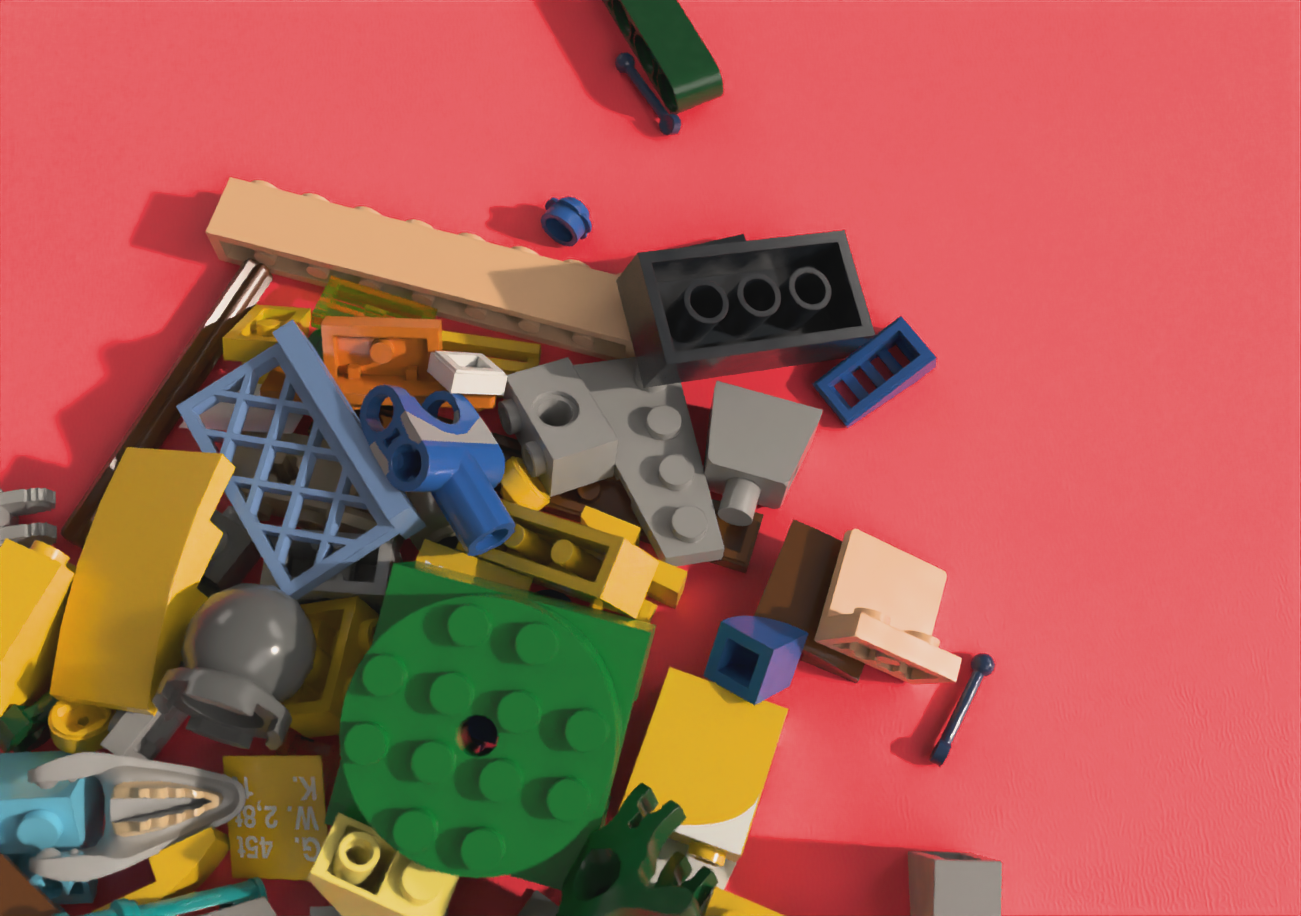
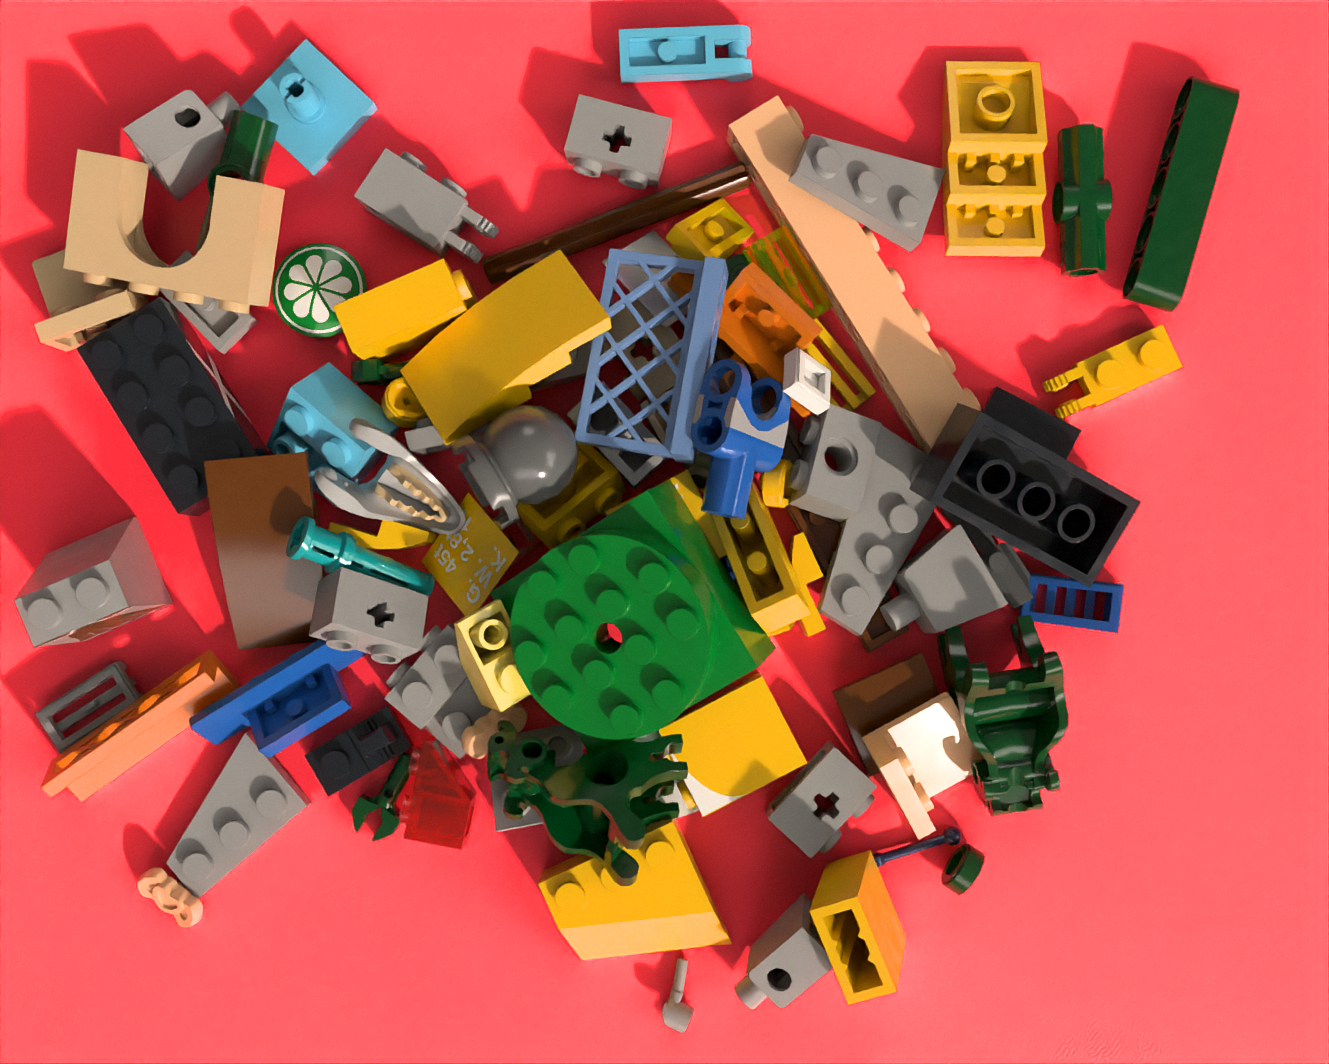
camera: 50 degrees right, 20 degrees up
(112, 329) = (600, 124): none -> light grey brick
(116, 217) = (684, 53): none -> medium azure plate
(377, 185) = (870, 187): none -> light grey wing
(469, 97) = (993, 158): none -> yellow slope
(566, 220) = (973, 315): blue plate -> none
(571, 70) = (1081, 200): none -> dark green piece
(669, 123) = (1113, 300): dark blue hinge -> none
(725, 170) = (1117, 370): none -> yellow hinge
(755, 656) = (817, 715): blue brick -> none
(781, 383) = (1001, 563): none -> dark grey piece
(820, 771) = (795, 808): none -> light grey brick
(920, 497) = (1009, 717): none -> dark green animal
(989, 815) = (859, 927): none -> brick
(1021, 681) = (962, 868): none -> dark green tile

